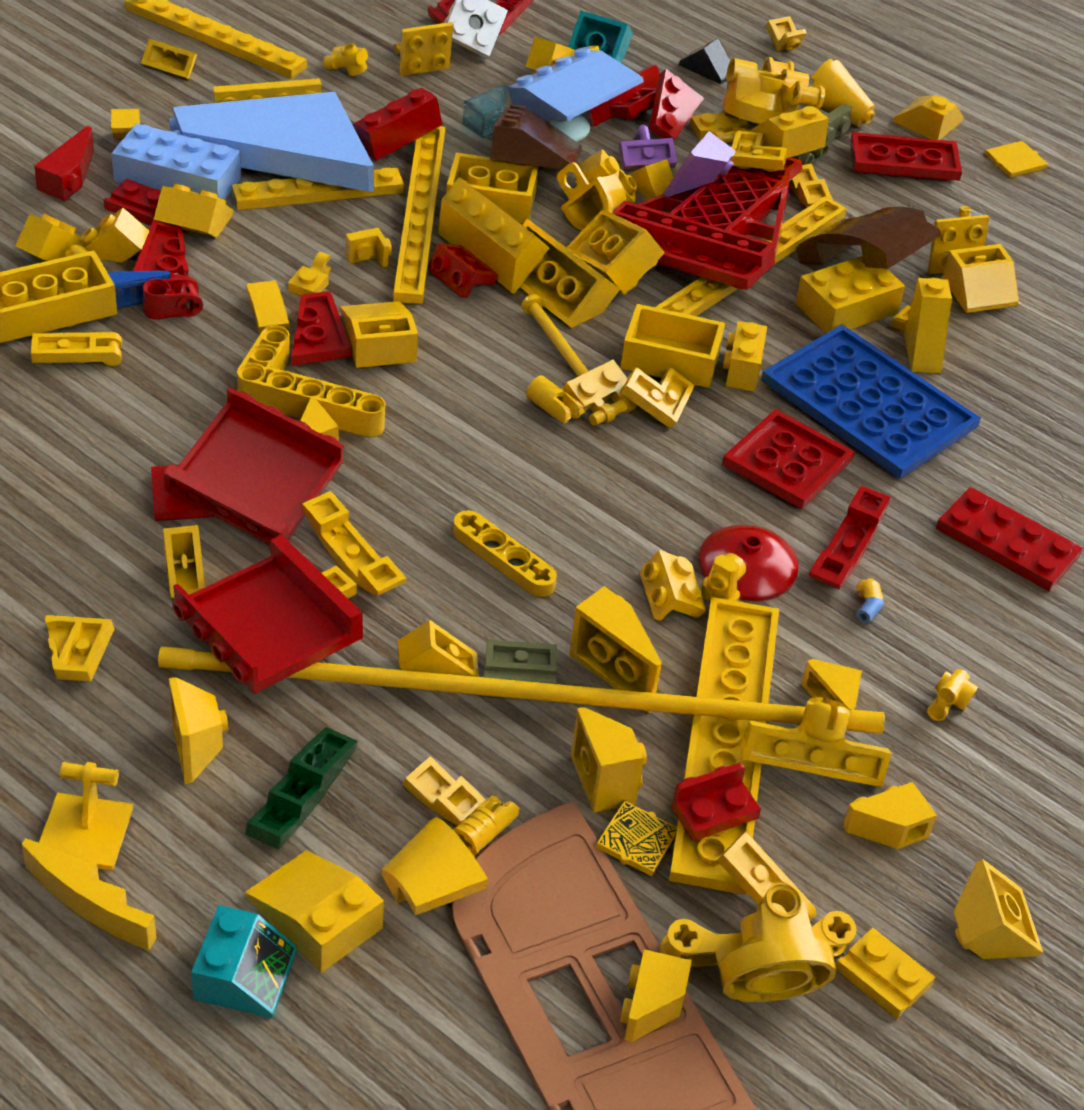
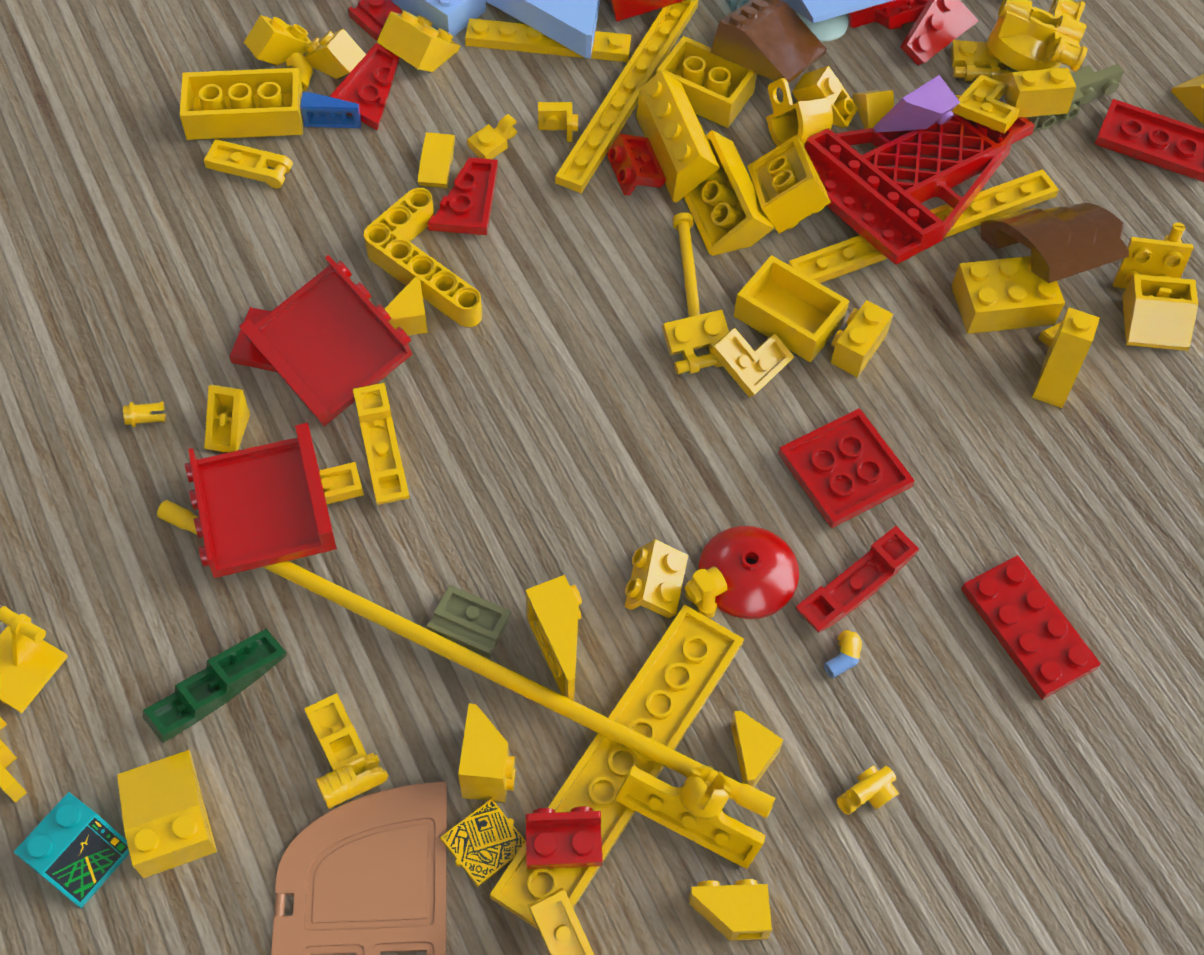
camera: 25 degrees right, 15 degrees up
(77, 645) = (98, 476): yellow wing -> none
(93, 581) = (142, 413): none -> yellow pin
(169, 297) = (352, 130): red piece -> none
(196, 727) = (144, 597): yellow slope -> none
(380, 333) = (520, 217): yellow slope -> none
(433, 869) = (278, 814): yellow slope -> none
(436, 651) = (397, 588): yellow slope -> none
(509, 549) = (518, 491): yellow beam -> none
(553, 400) = (647, 335): yellow hinge -> none
(646, 151) = (885, 73): medium lavender plate -> none
(808, 186) = (1035, 152): yellow slope -> none
(841, 89) = (1120, 42): yellow cone -> none
(870, 400) = (967, 424): blue plate -> none

